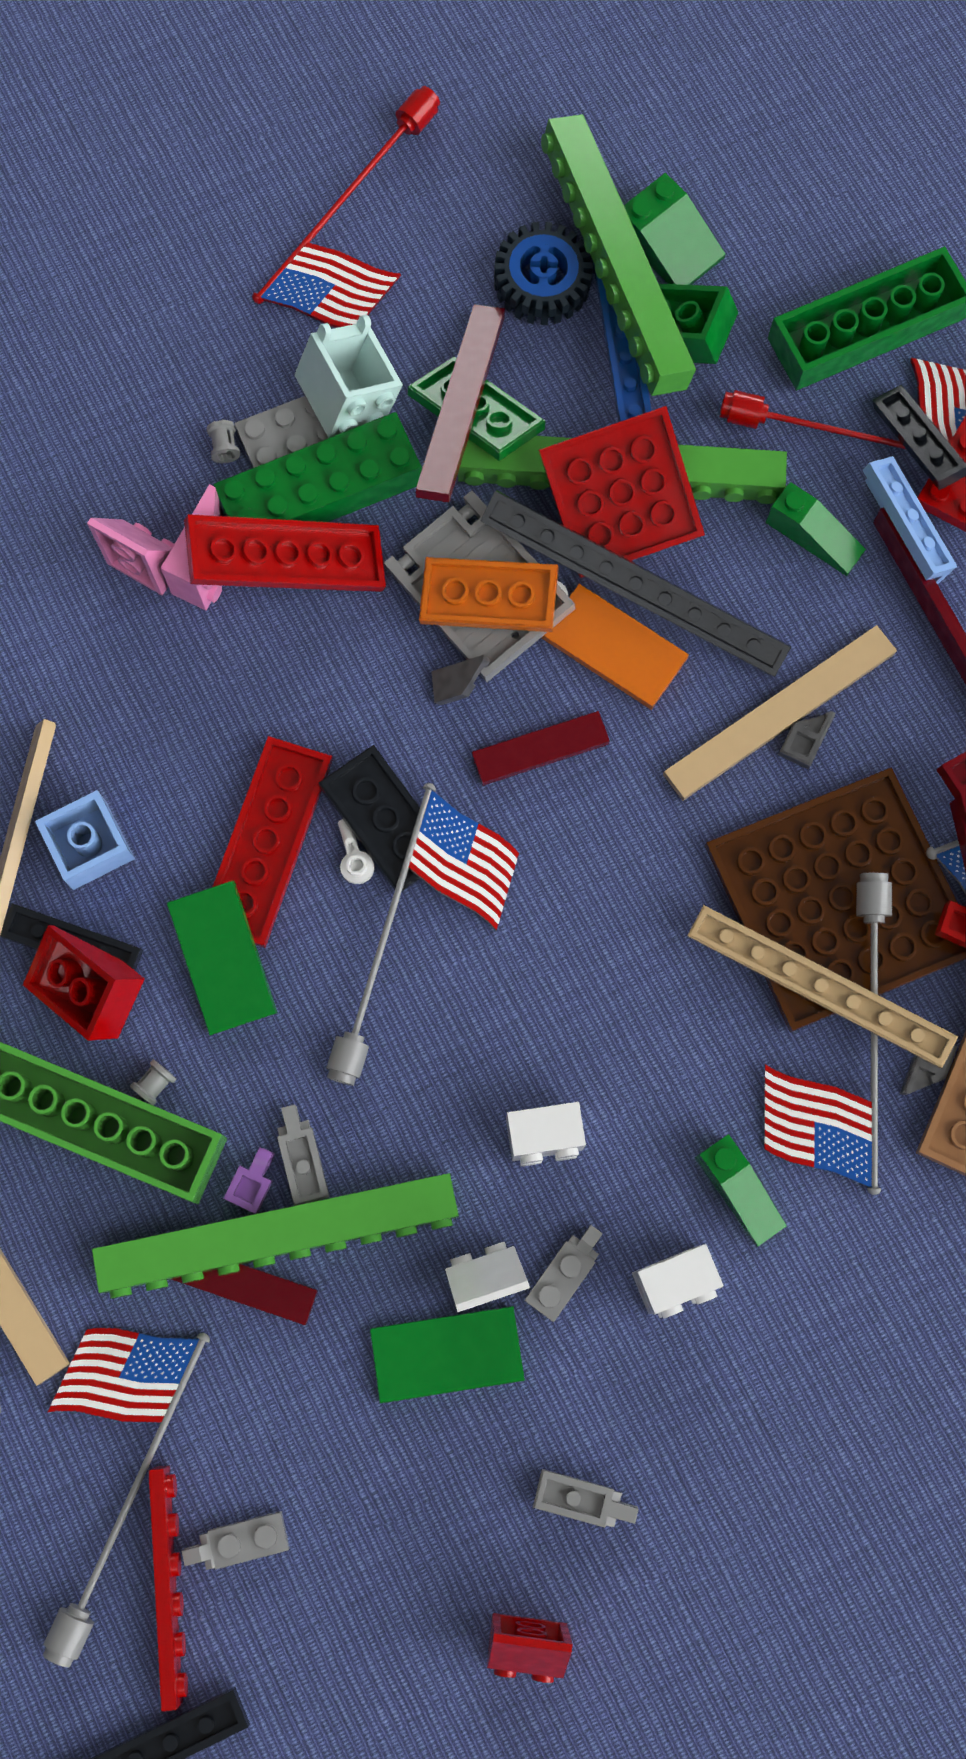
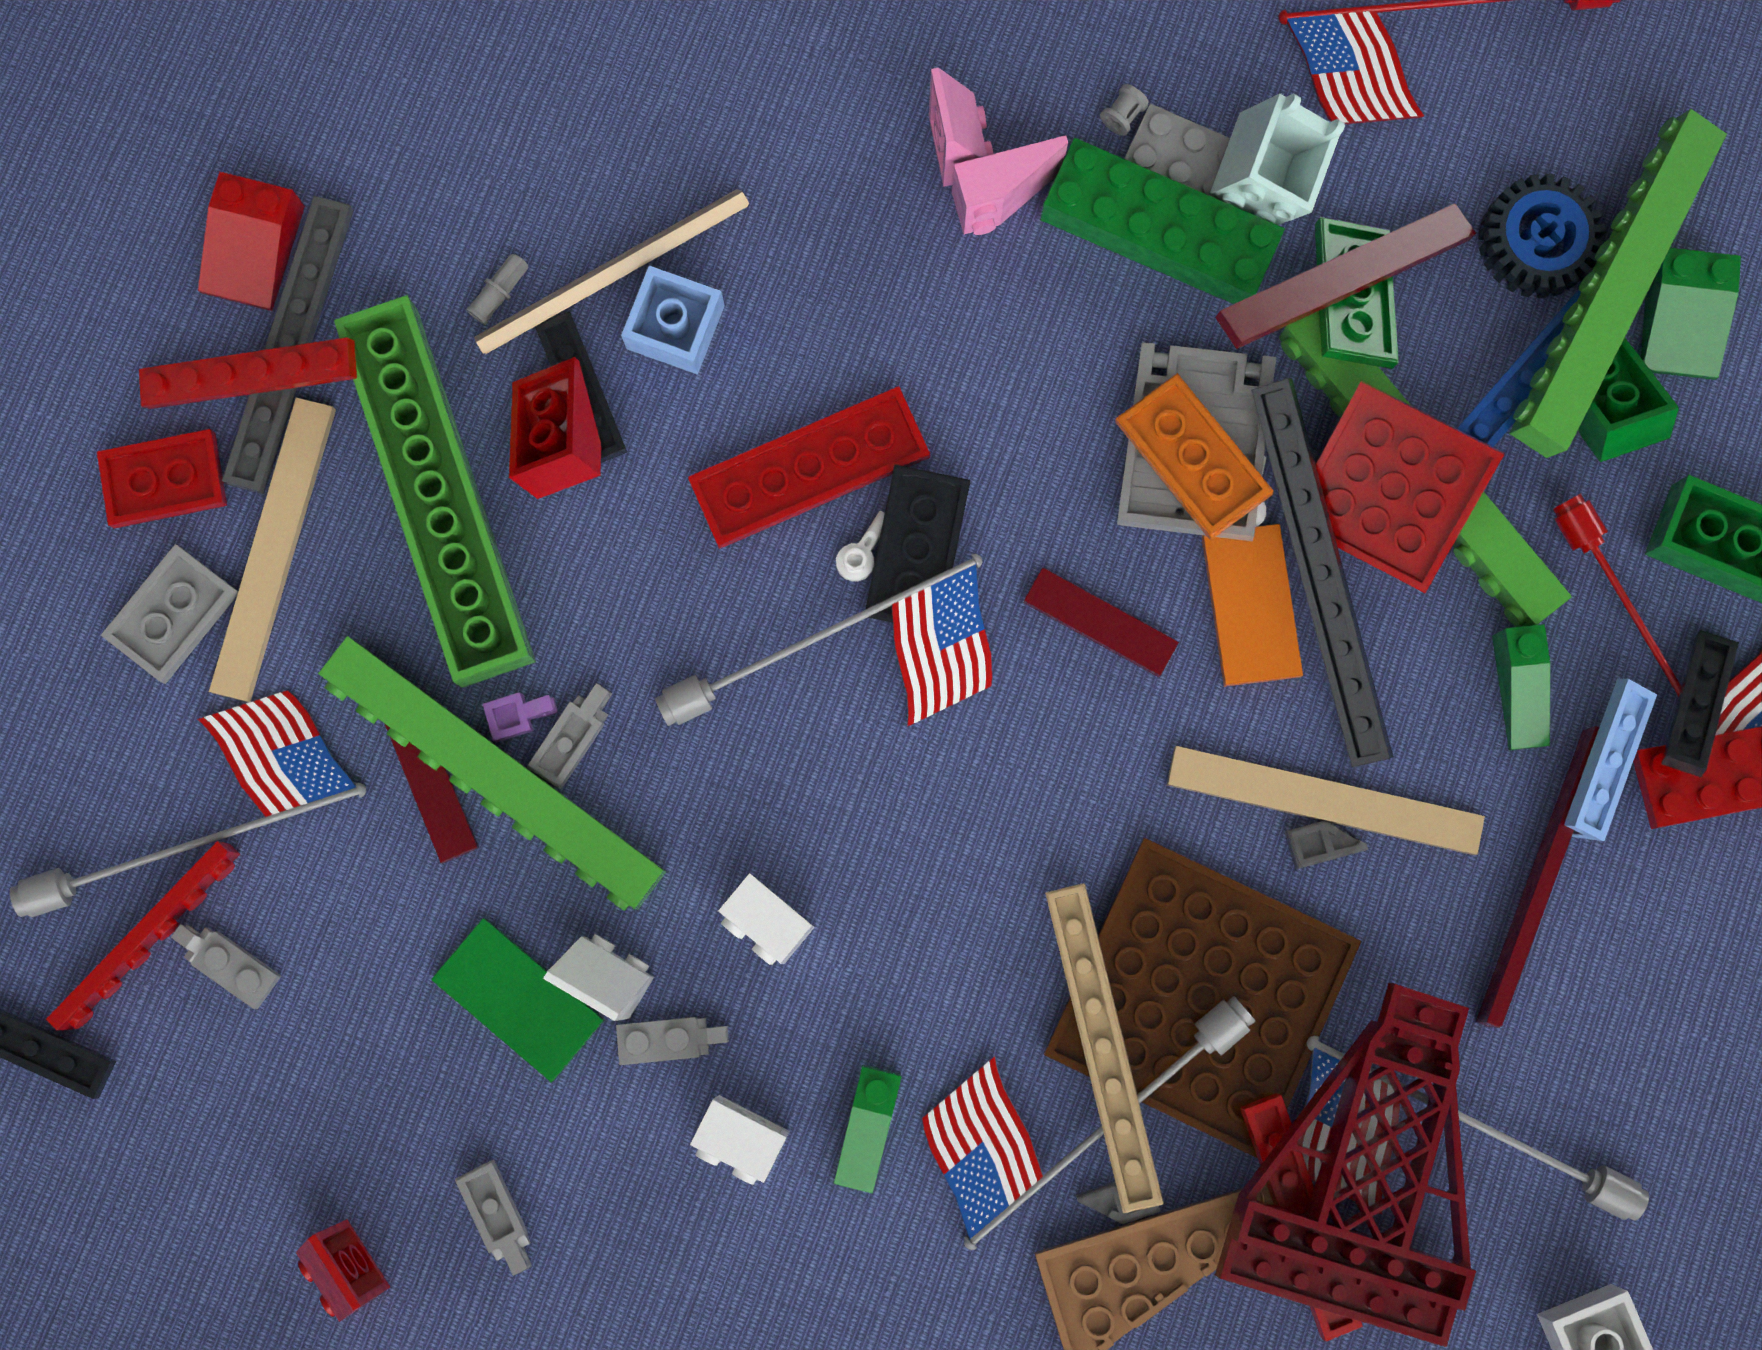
camera: 50 degrees right, 5 degrees up
(153, 1082) = (526, 560): light grey bush -> none
(222, 957) = (676, 521): green tile -> none
(284, 553) = (1066, 253): red plate -> none
(457, 680) = (1094, 498): flat silver tile -> none

